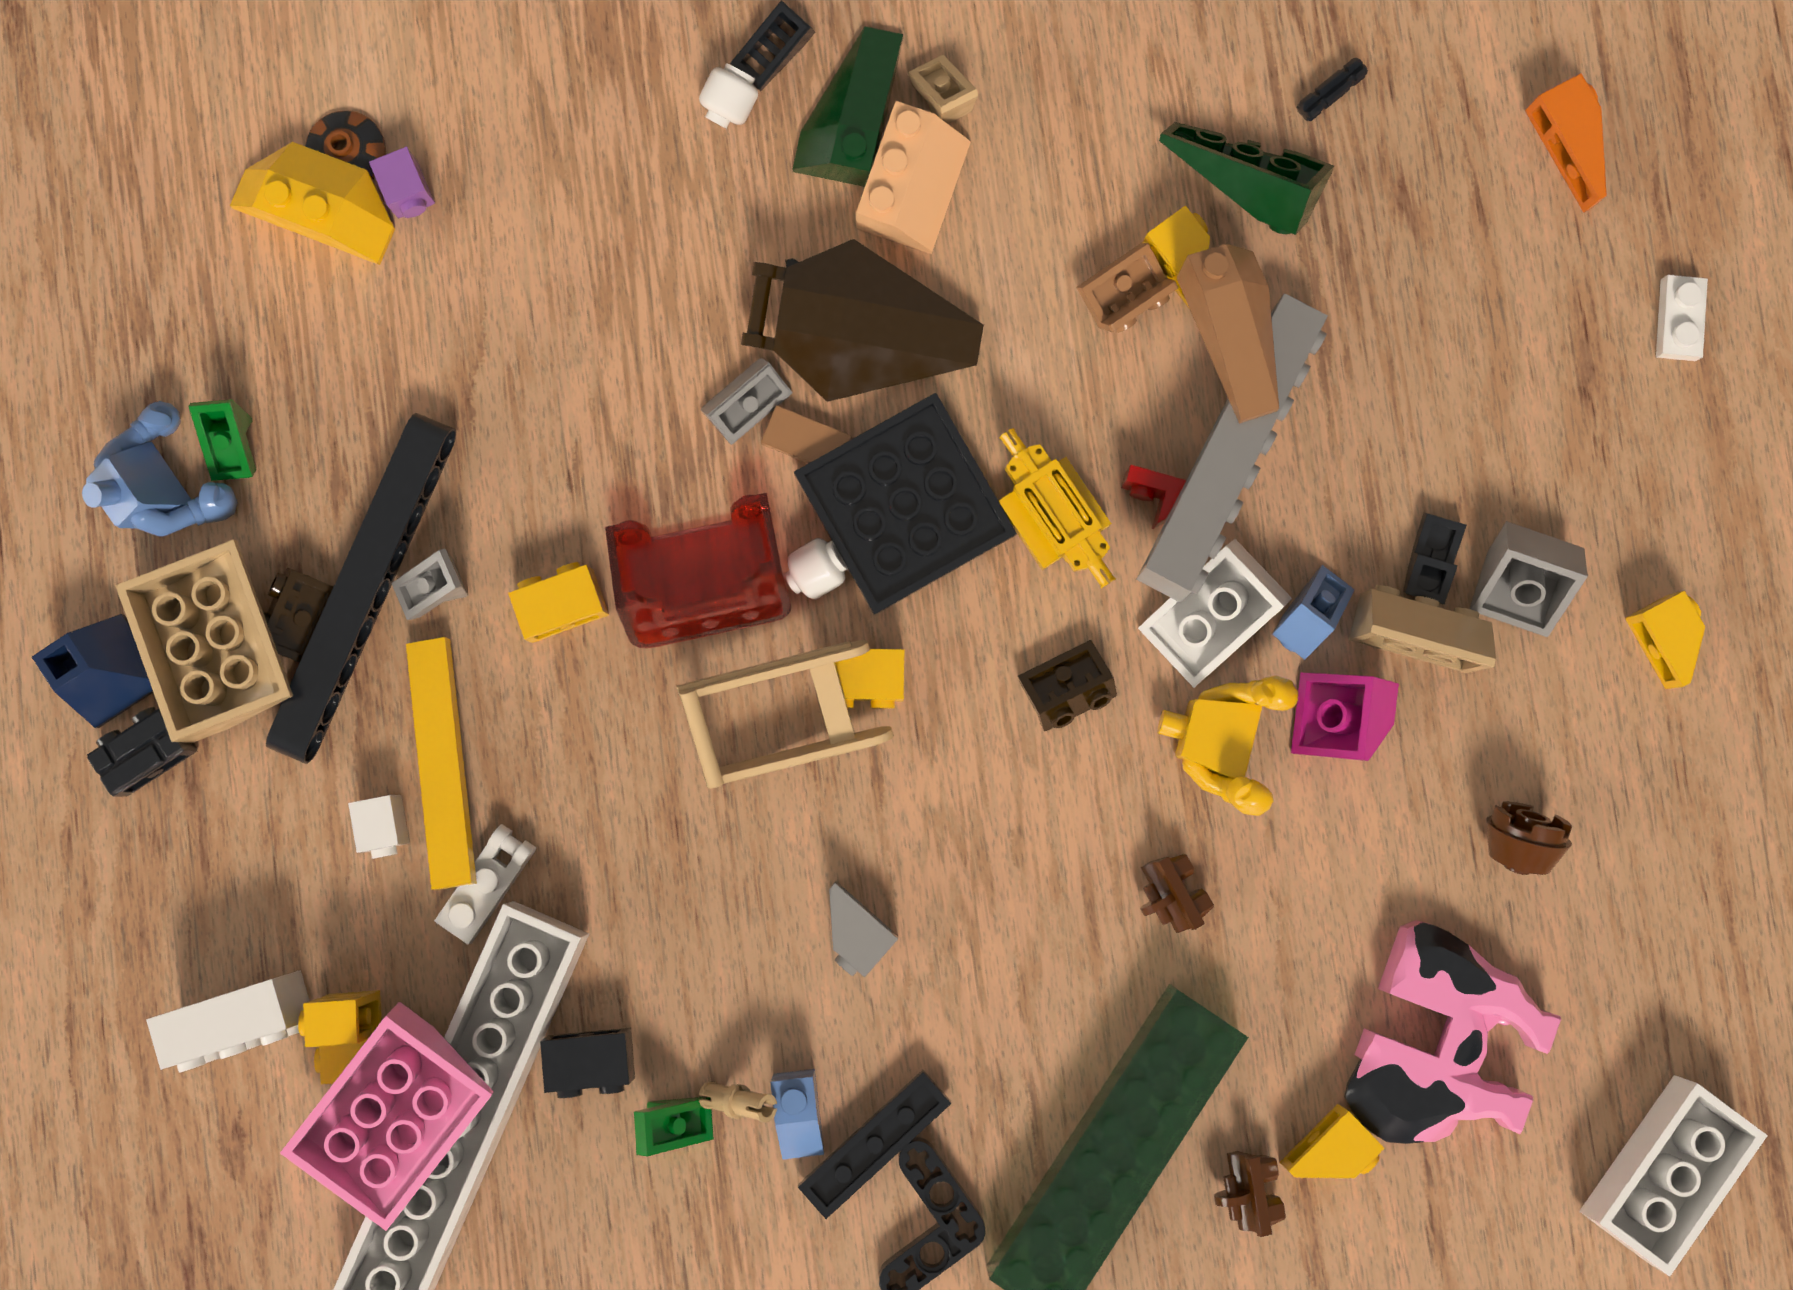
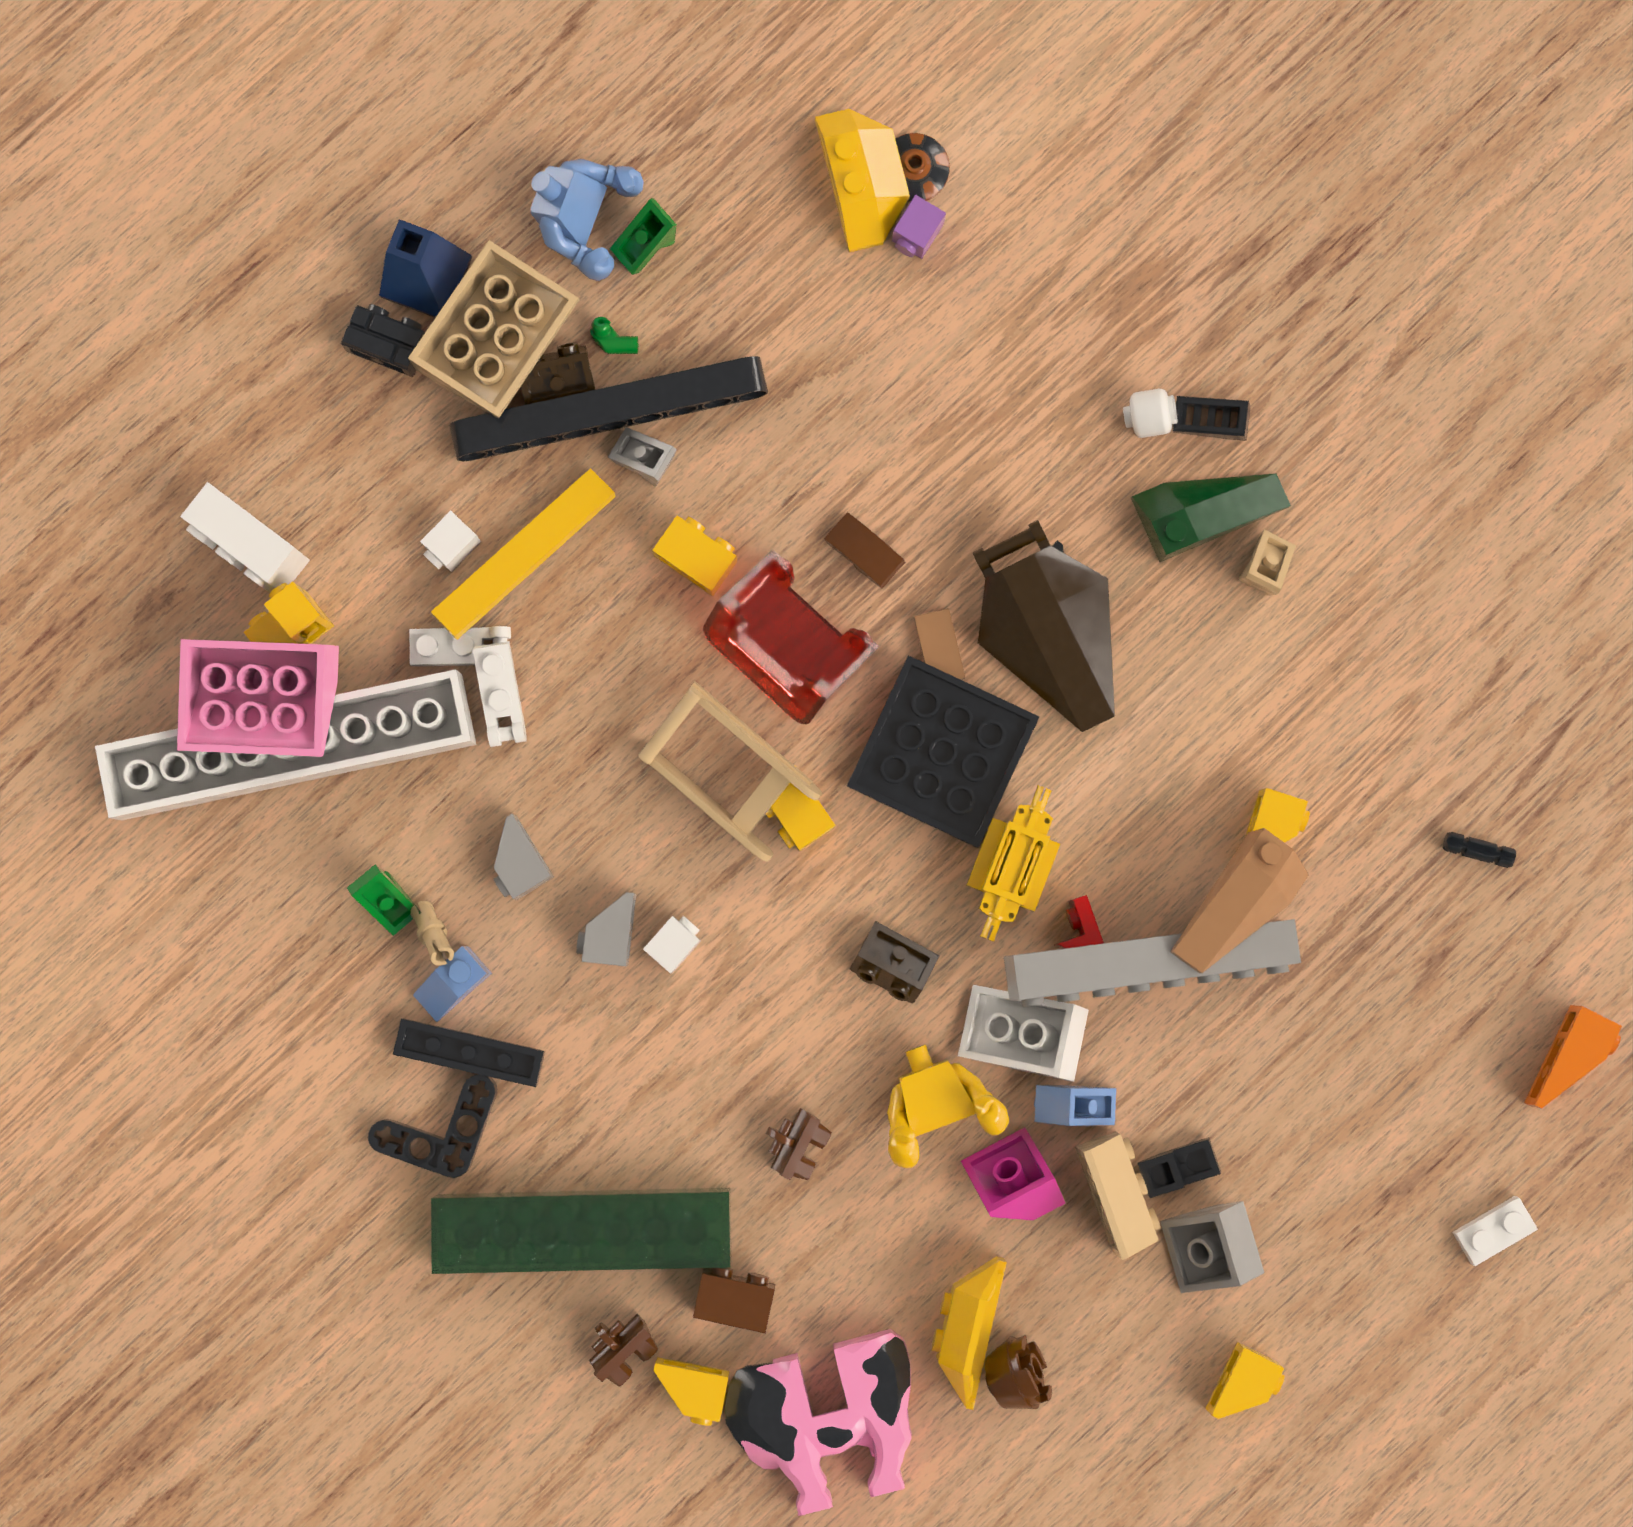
camera: 55 degrees right, 0 degrees up
(298, 541) = (610, 341): none -> green arm
(555, 877) = (499, 692): none -> white plate
(587, 1061) = (386, 807): black brick -> none
(667, 444) = (864, 550): none -> reddish brown slope
(728, 970) = (519, 862): none -> light grey slope
(746, 400) = (937, 584): light grey slope -> none
(815, 569) = (849, 720): white head -> none
(907, 878) = (673, 943): none -> white brick
(912, 178) = (1186, 589): light nougat slope -> none
(1126, 289) = (1216, 802): medium nougat bracket -> none
(1265, 185) = (1369, 849): dark green wedge -> none
(1279, 1053) = (734, 1299): none -> reddish brown brick
(1449, 853) = (967, 1327): none -> yellow wedge

